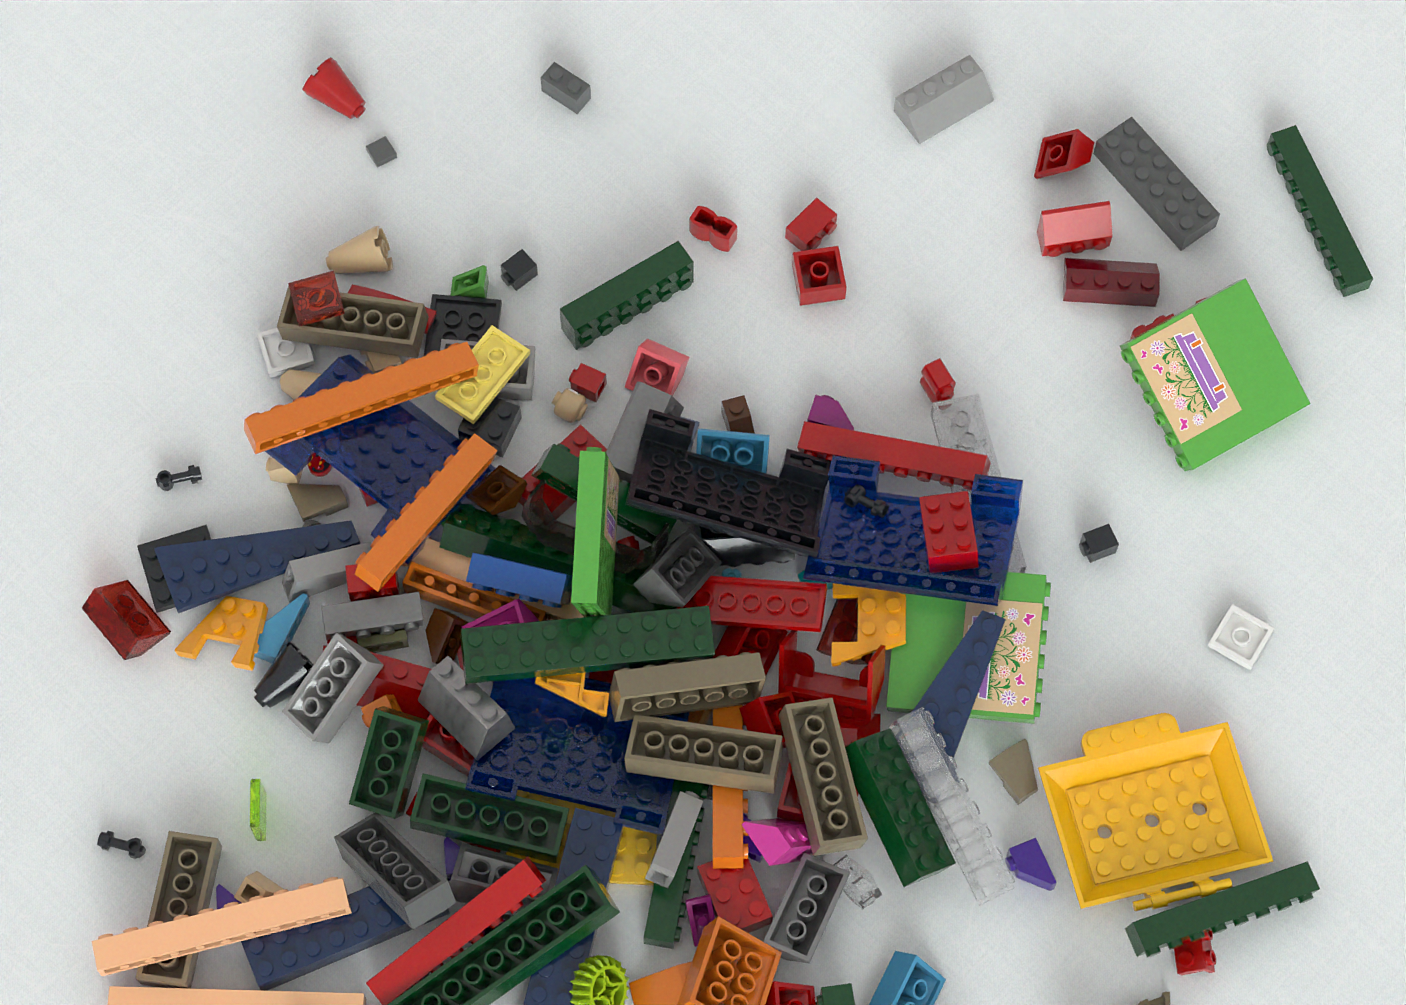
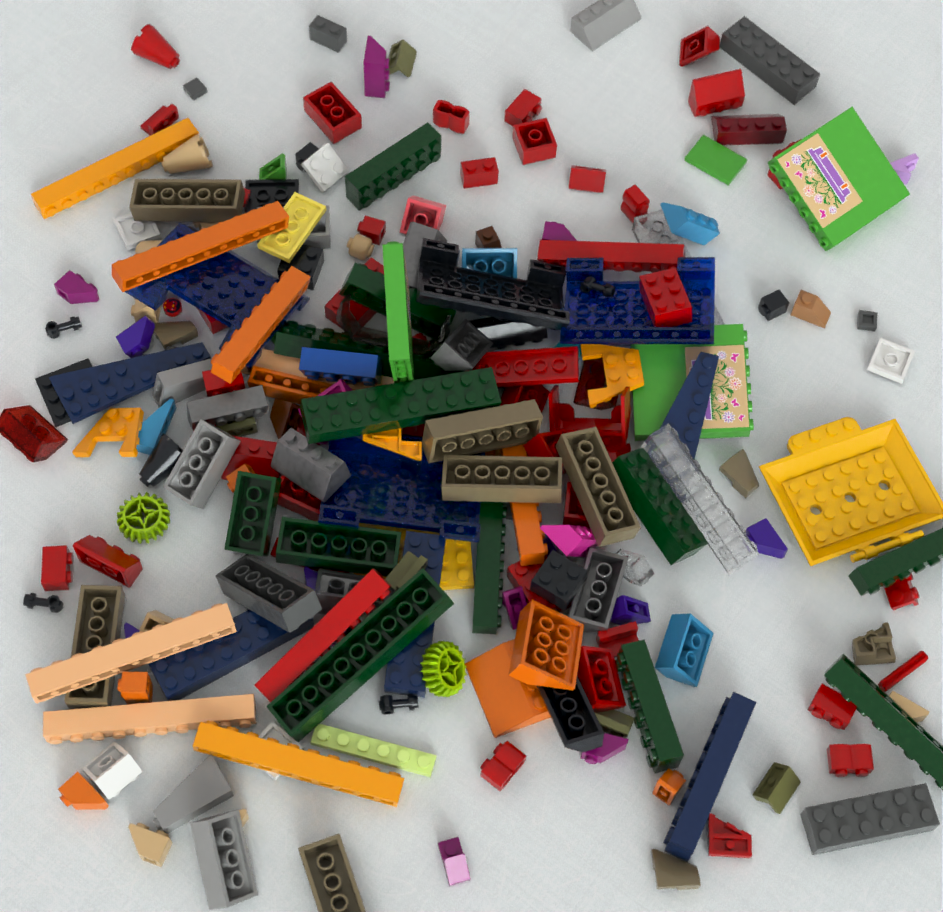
camera: 10 degrees left, 5 degrees down
(141, 802) = (56, 568): none -> red brick
(198, 428) = (75, 289): none -> magenta slope
(206, 798) = (108, 559): none -> red slope
(223, 970) = (136, 687): none -> orange brick
(243, 748) = (159, 517): none -> lime gear
(258, 809) = (151, 562): clear neon green tile -> none
(264, 260) = (111, 169): none -> light orange brick
(269, 505) = (137, 337): none -> dark purple slope
(316, 298) = (158, 184): clear red tile -> none
(330, 194) = (160, 119): none -> red panel
(498, 491) = (314, 309): reddish brown slope -> none
(537, 286) = (324, 167): none -> white plate
(557, 207) = (332, 112): none -> red brick
(567, 861) = (406, 569): none -> olive panel
(620, 153) = (375, 69): none -> magenta slope
(659, 133) = (402, 58): none -> olive panel
(674, 839) = (487, 548): light grey slope -> none
(739, 313) = (479, 172): none -> red brick
(756, 894) = (558, 580): none -> black brick
(824, 972) = (617, 636): none -> red panel
(844, 940) = (630, 610): none -> dark purple slope
(882, 334) = (587, 179): none -> red panel
(1004, 418) = (690, 224): none -> dark azure slope
(1059, 323) = (715, 160): none -> bright green tile
(1148, 554) = (811, 309): none -> medium nougat slope
(1221, 576) = (867, 320): none -> dark grey tile
(1306, 362) = (905, 166): none -> lavender slope
(1319, 211) = (889, 69): dark green brick -> none

